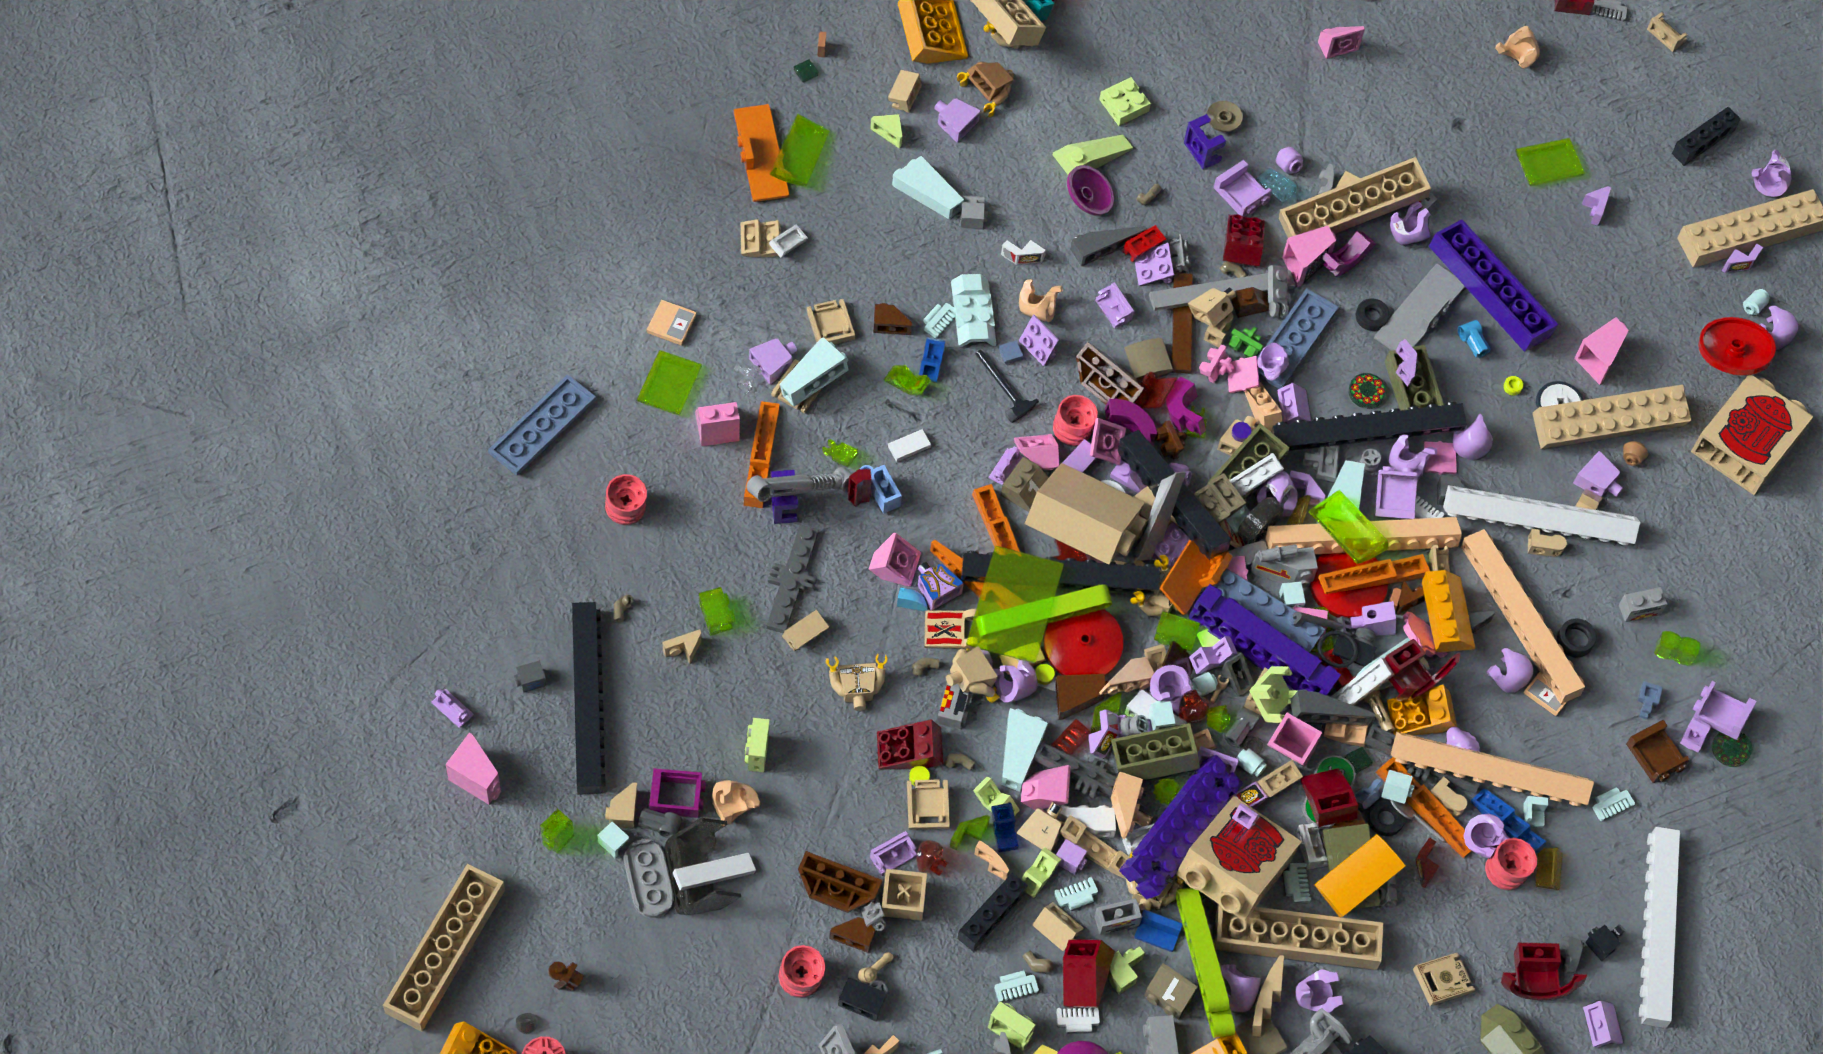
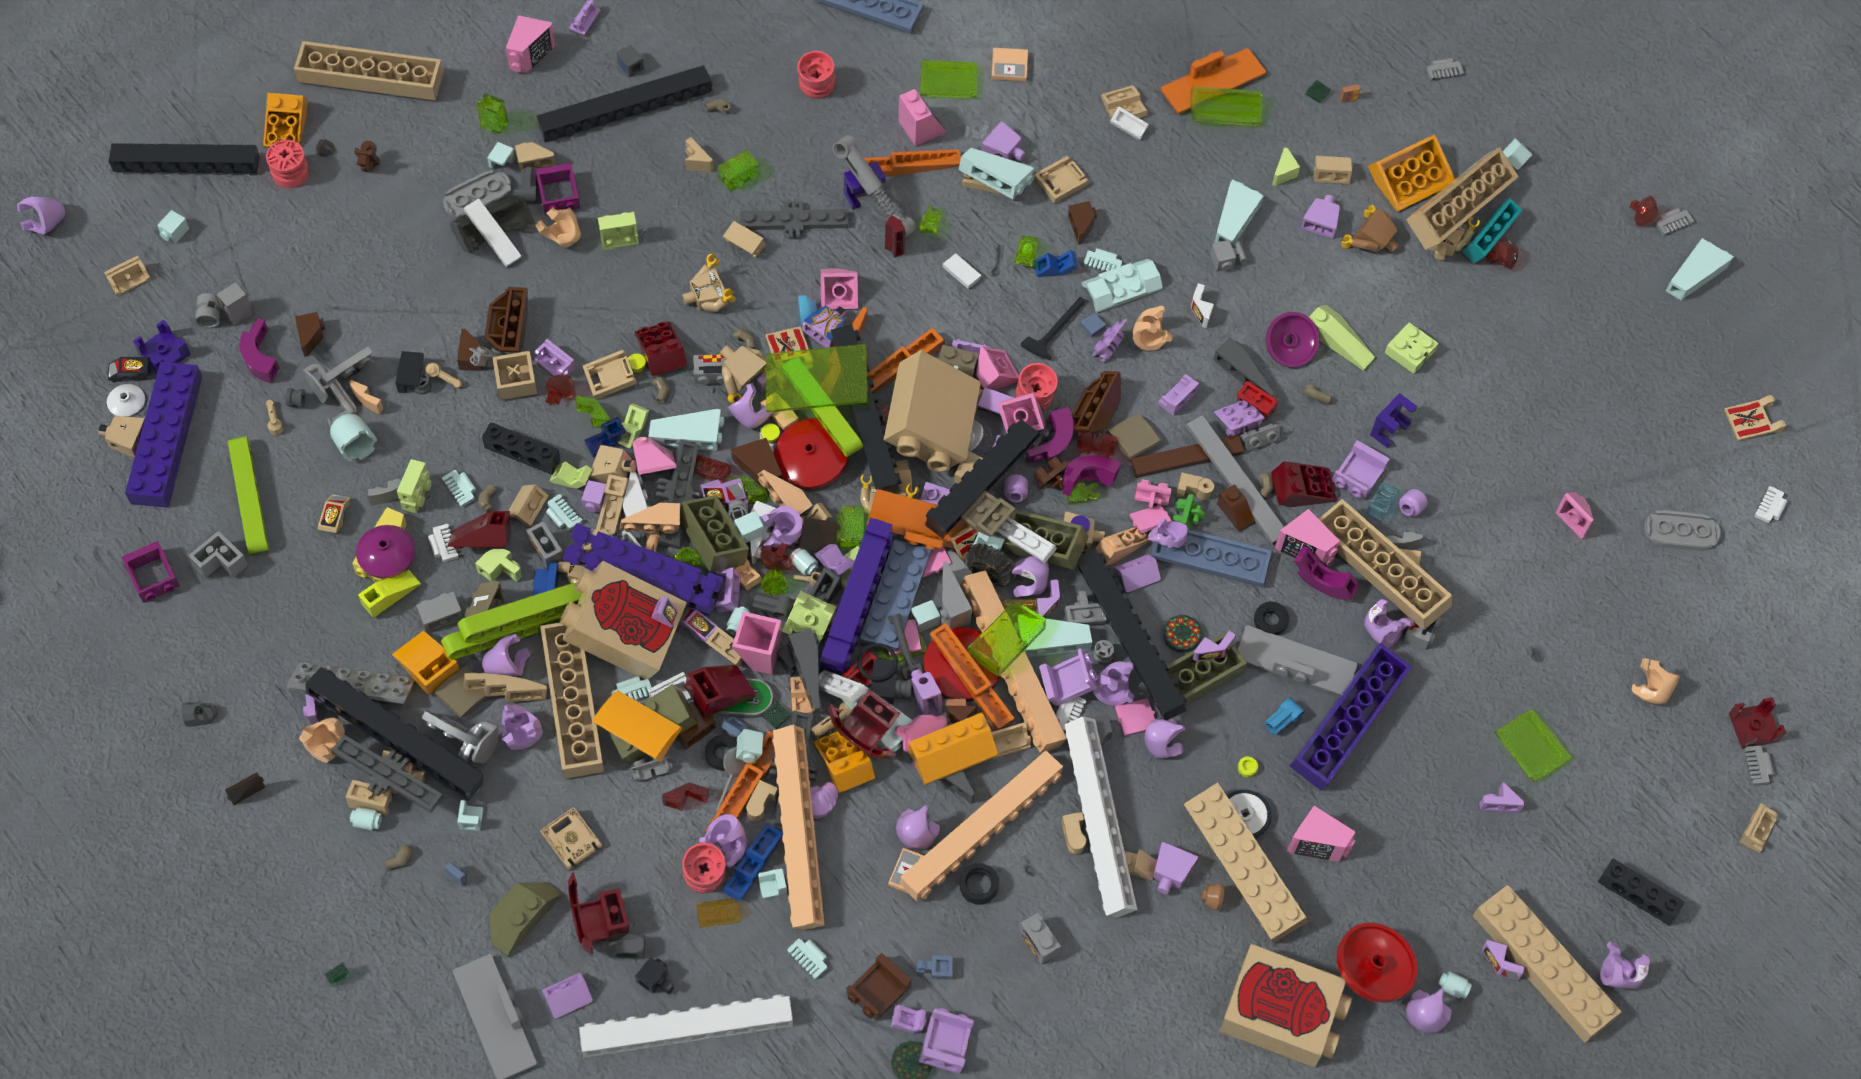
camera: 75 degrees right, 0 degrees up
(807, 961) = (418, 309): coral wheel -> none
(884, 489) = (905, 256): light blue hinge -> none
(996, 864) = (570, 439): light nougat slope -> none
(1159, 515) = (948, 470): light grey wedge -> none
(1212, 306) = (1208, 469): tan torso -> none
(1227, 111) = (1438, 428): dark tan dish -> none
(1277, 291) = (1256, 524): light grey hinge -> none
(1278, 553) = (949, 576): light grey axle -> none
(1680, 649) = (1002, 984): clear neon green brick -> none

